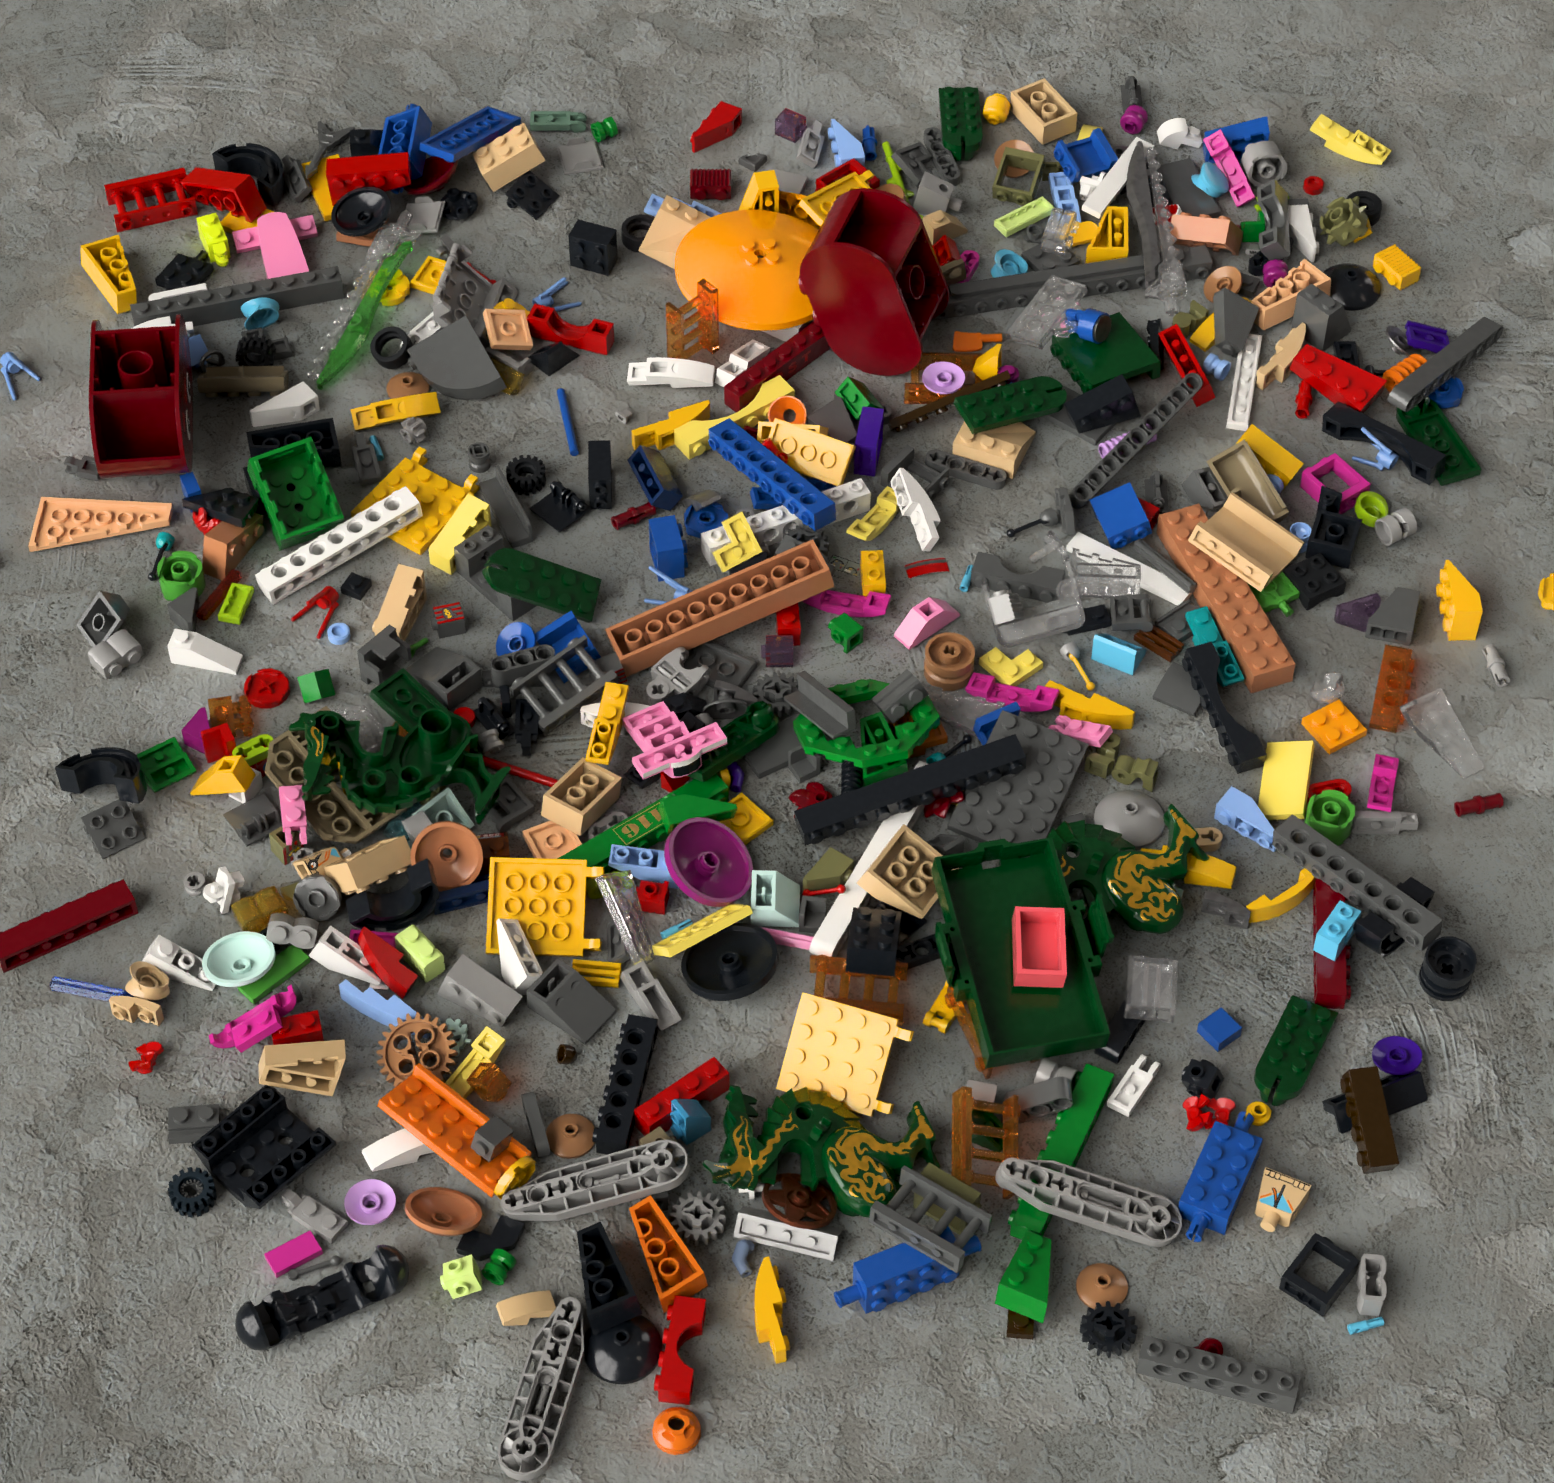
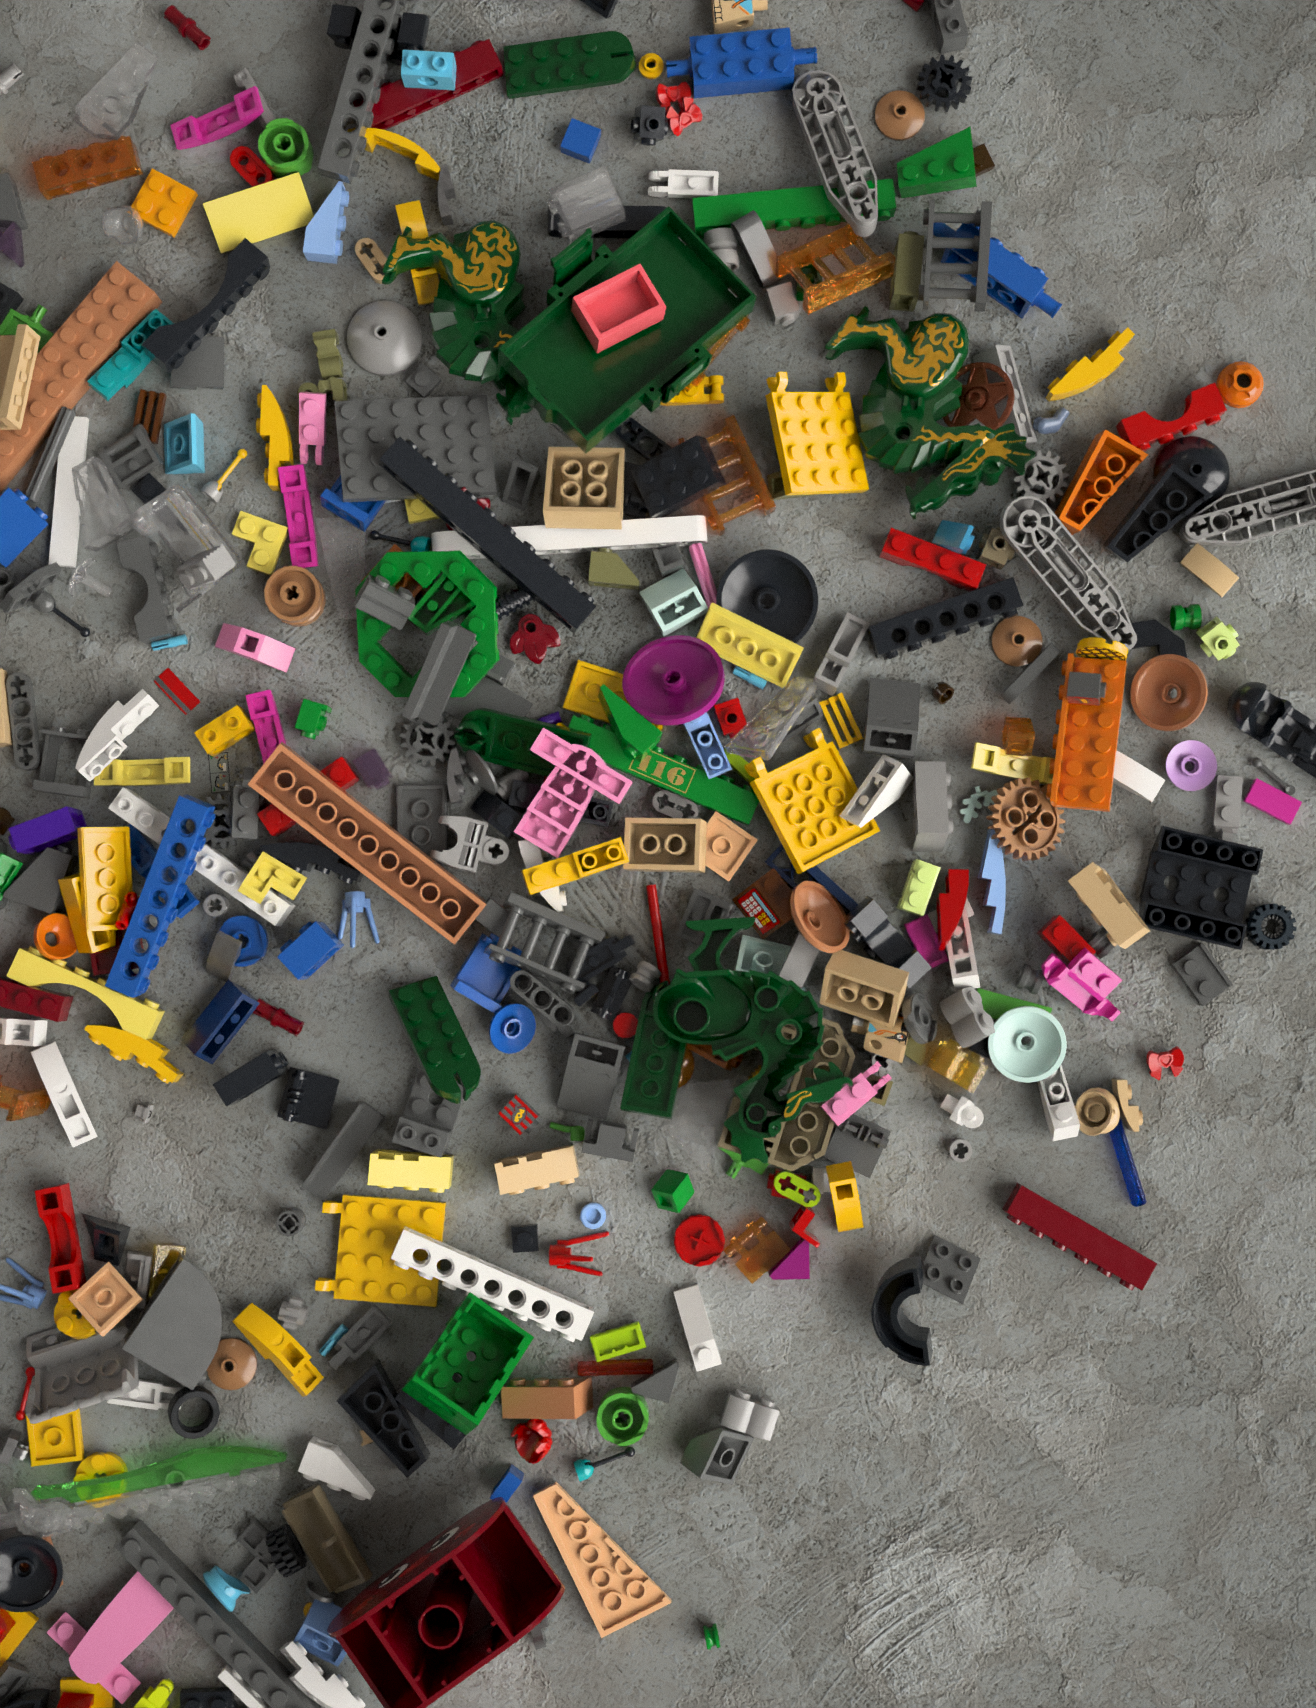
camera: 115 degrees left, 35 degrees up
(165, 764) = (846, 1274): green slope -> none
(225, 505) = (513, 1431): black wing -> none
(526, 465) = (301, 1159): black tyre -> none
(567, 422) = (183, 1167): blue bar -> none
(840, 889) = (632, 544): red hinge -> none
(1175, 623) = (114, 413): dark grey plate -> none

